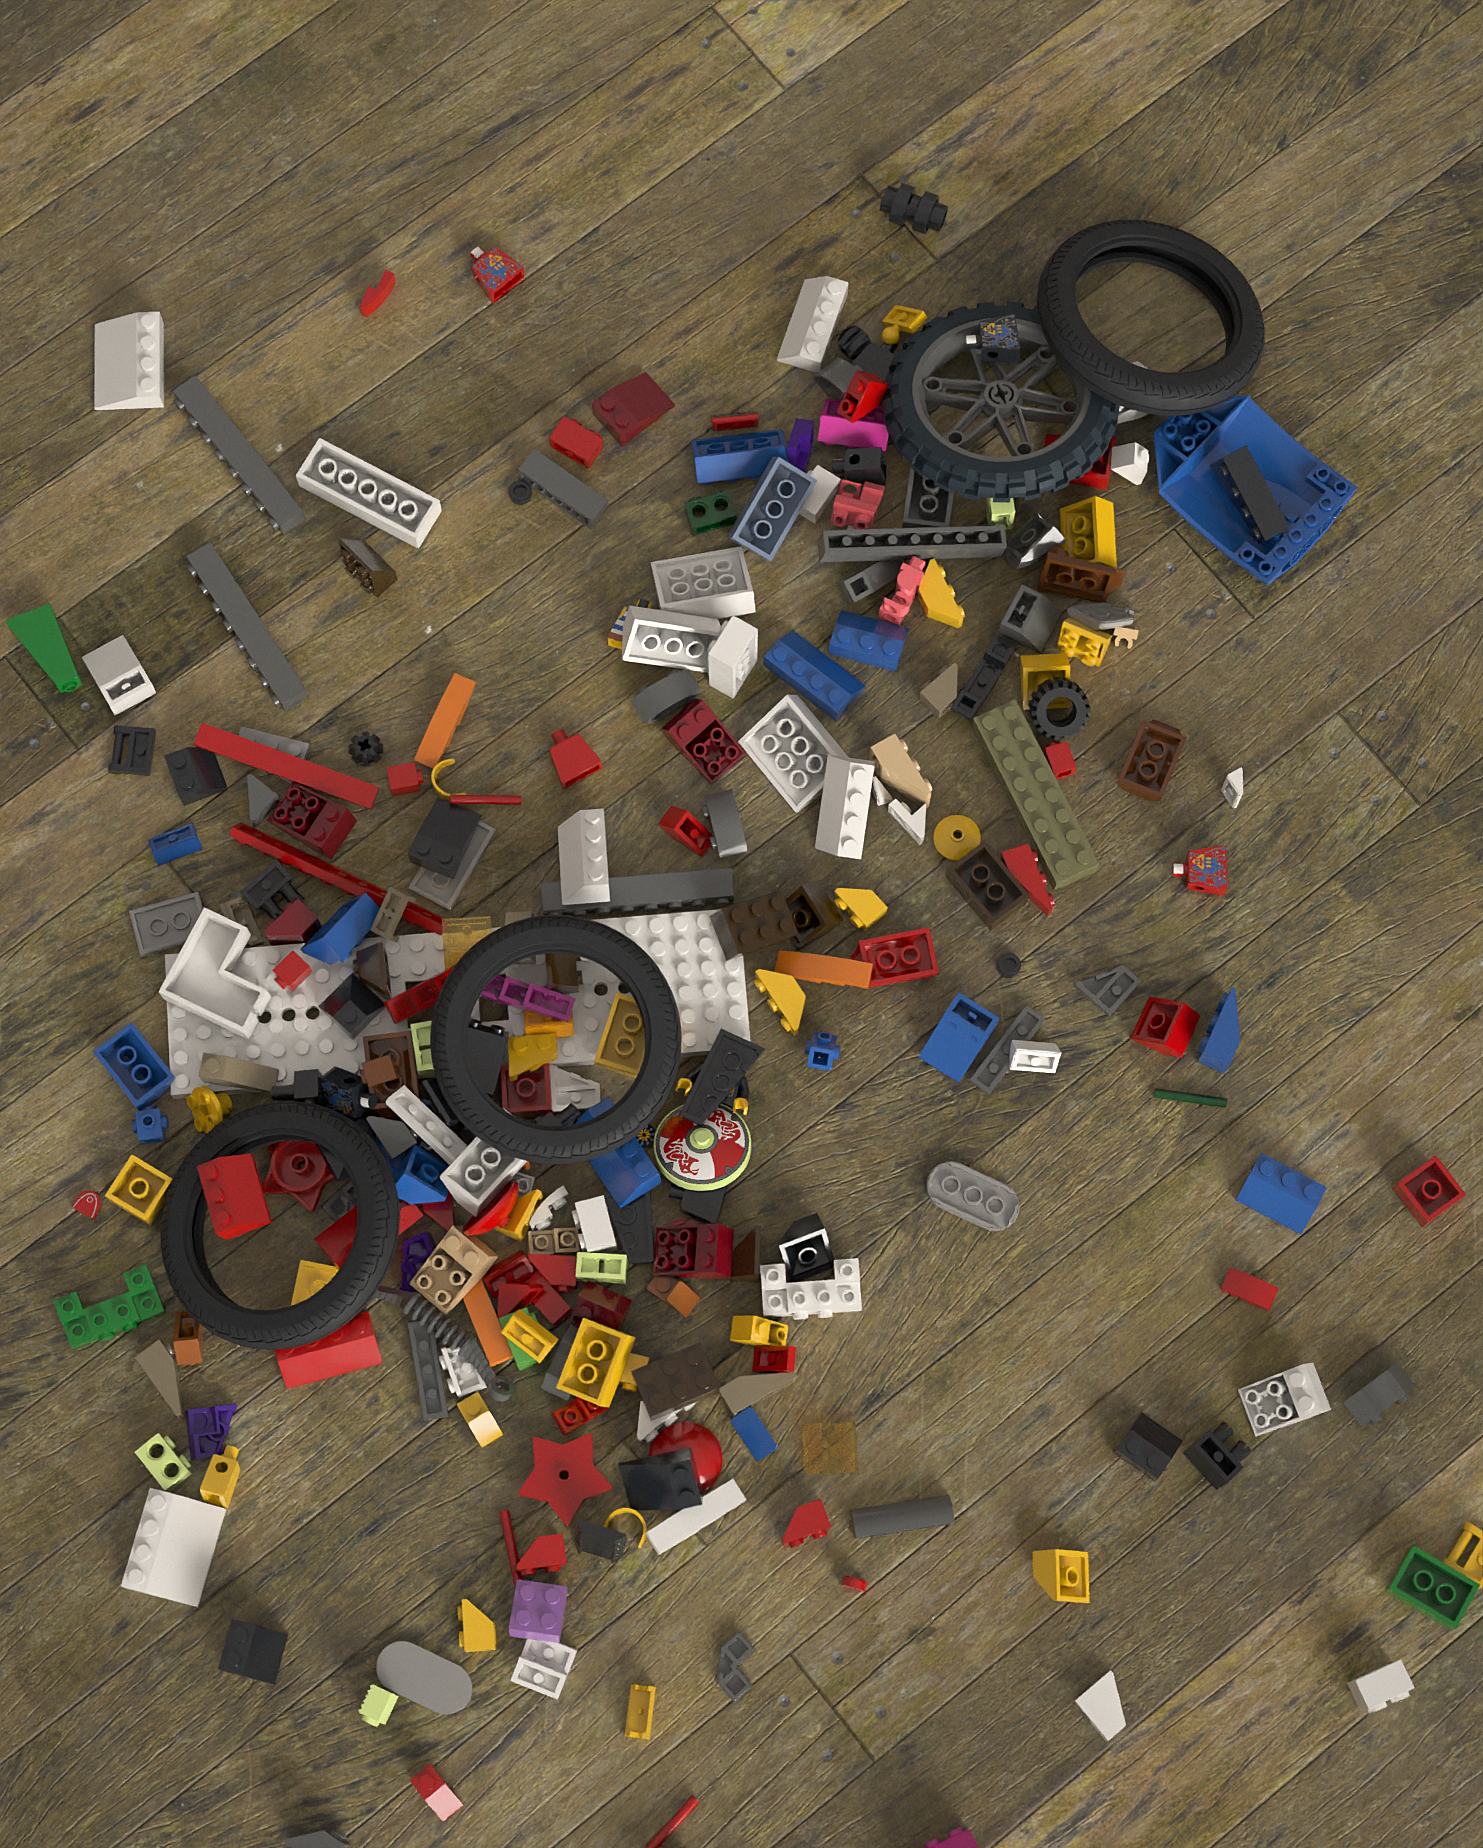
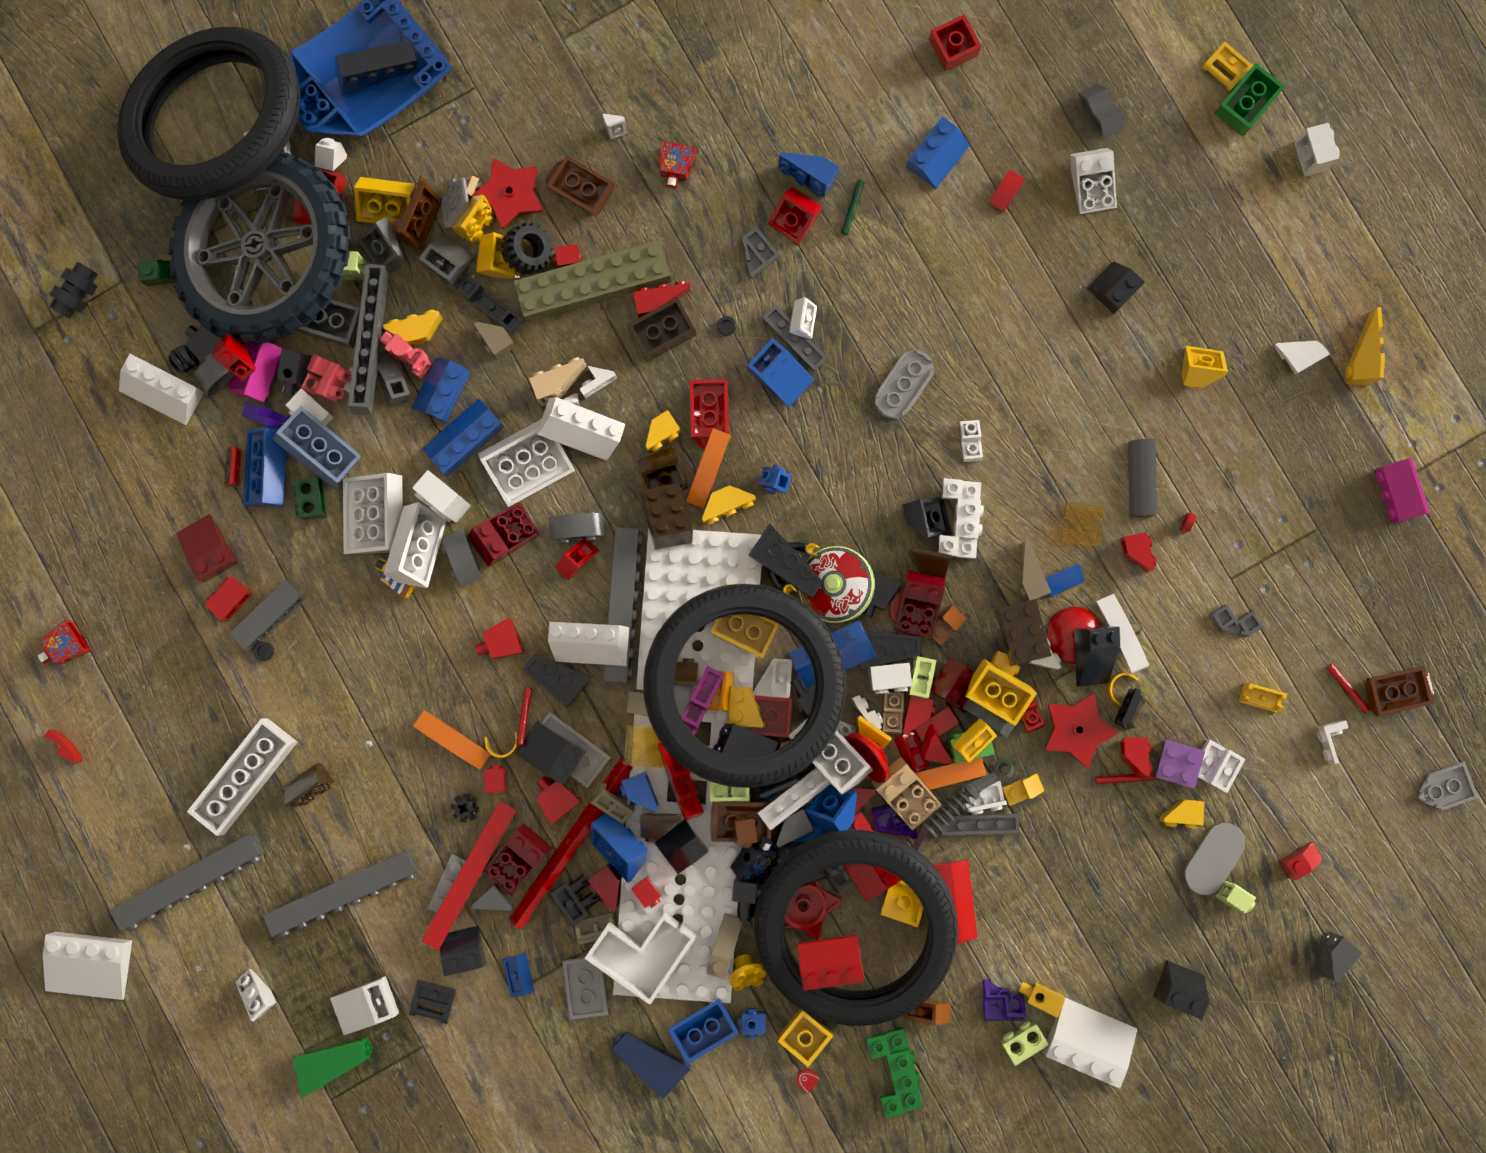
camera: 80 degrees left, 10 degrees up
(87, 1015) = (654, 1065): none -> dark blue slope
(117, 550) = (255, 994): none -> white slope
(163, 1371) = (954, 1034): dark tan slope -> none
(389, 852) = (555, 799): none -> red torso
(411, 943) = (640, 791): none -> blue slope
(536, 830) = (556, 679): none -> black wing
(612, 1813) = (1325, 738): none -> white bracket
(758, 1331) = (988, 564): yellow slope -> none
(774, 1359) = (1011, 555): red slope -> none
(901, 319) = (170, 317): yellow plate -> none
(914, 1290) = (971, 441): none -> white slope
(952, 291) = (154, 272): none -> dark green slope
(955, 848) = (617, 357): yellow dish -> none
(997, 340) = (206, 238): black torso -> none
(1104, 1789) = (1367, 361): none -> yellow wedge
(1122, 694) = (520, 201): none -> red plate
(1214, 1459) = (1132, 240): black brick -> none

